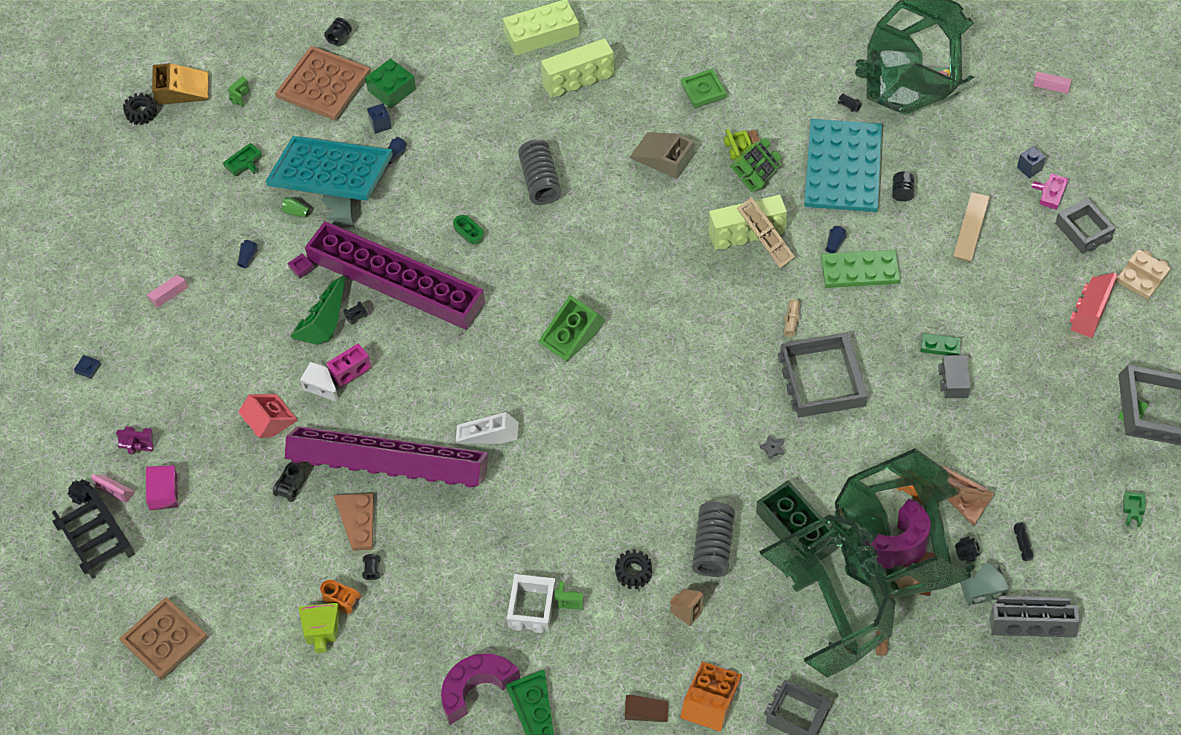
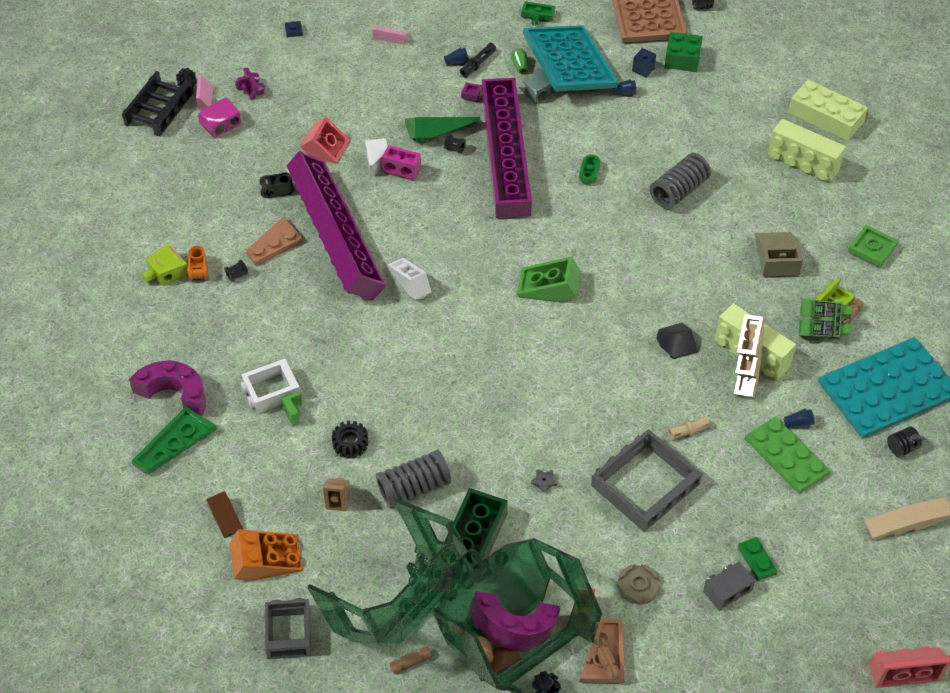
camera: 55 degrees right, 5 degrees down
(163, 638) = (98, 186): medium nougat plate -> none
(266, 244) = (467, 69): none -> black pin
(698, 274) = (677, 340): none -> black slope
(906, 436) = (638, 590): none -> dark tan tile

